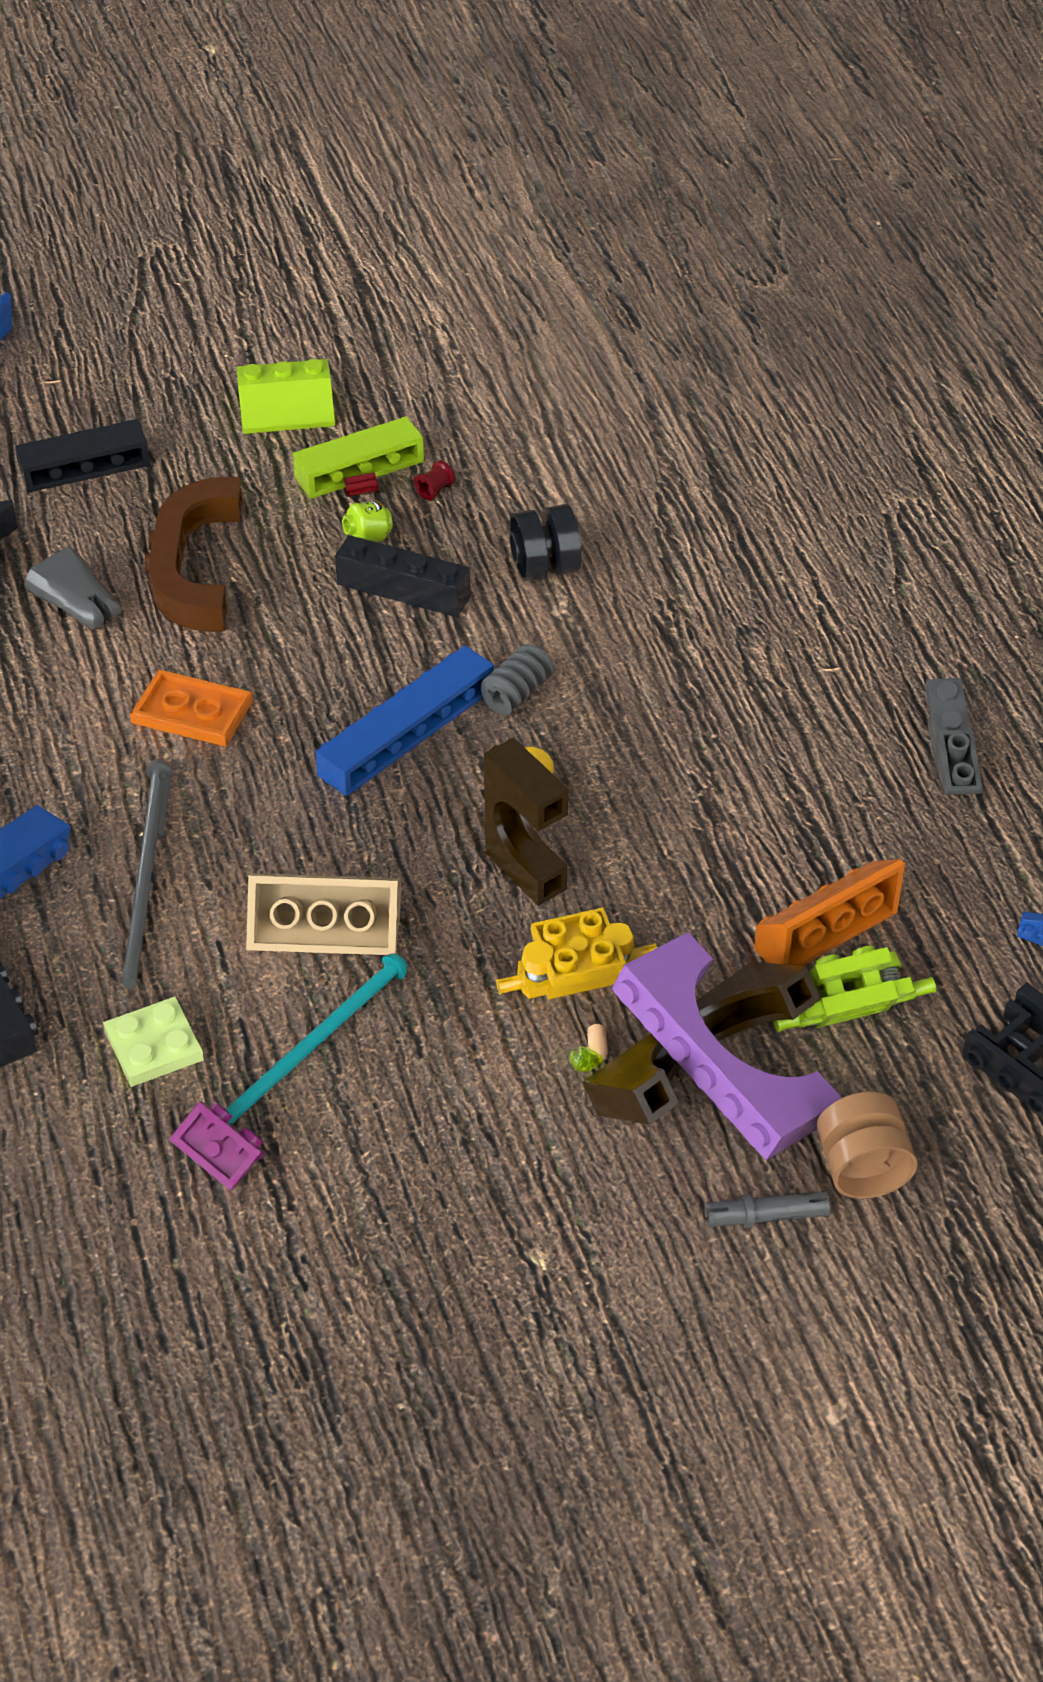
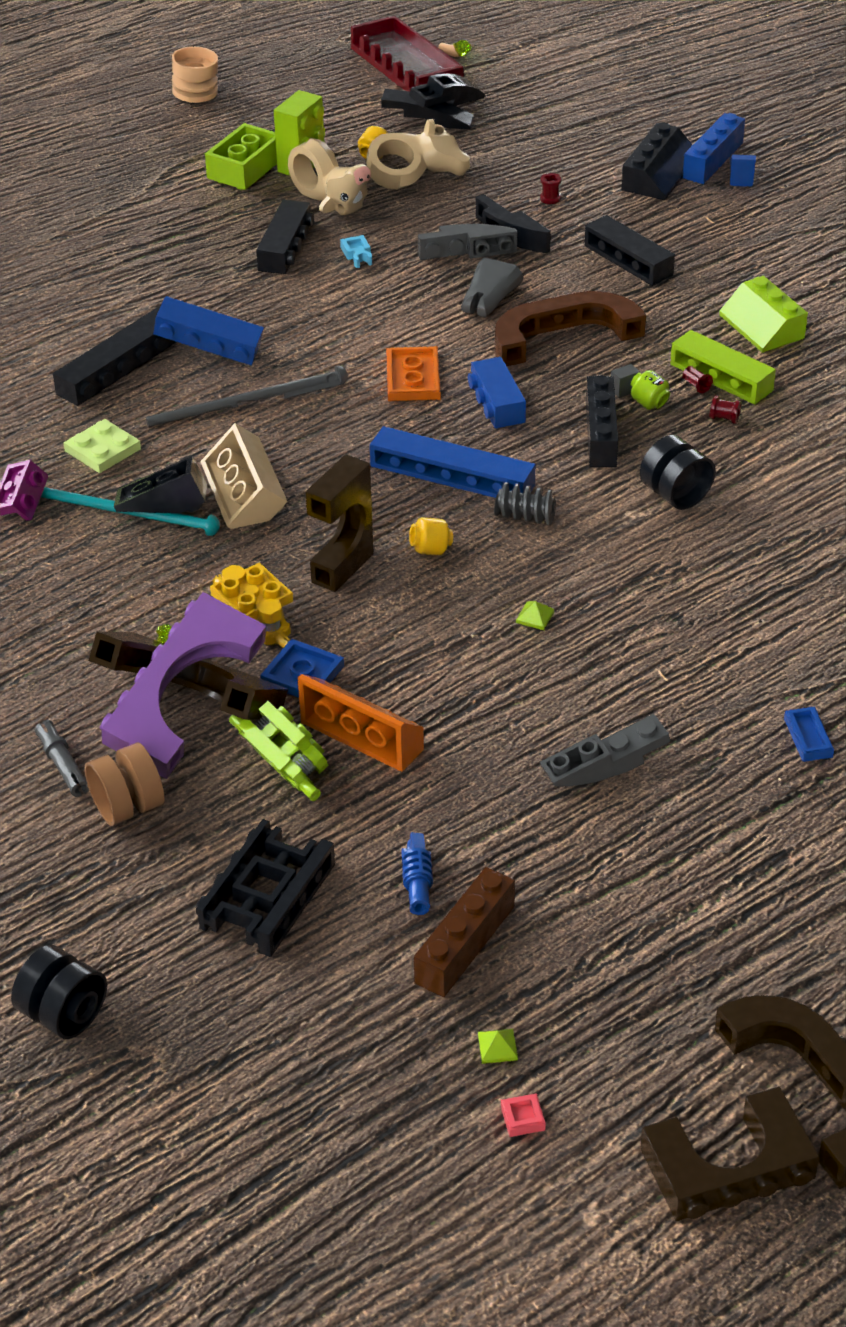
camera: 70 degrees right, 5 degrees down
(290, 642) = (497, 392): none -> blue brick
(317, 988) = (165, 491): none -> black slope
(333, 535) = (623, 378): none -> dark grey piece
(696, 733) = (535, 615): none -> lime slope
(721, 939) = (300, 659): none -> blue plate
(967, 594) = (808, 734): none -> blue tile

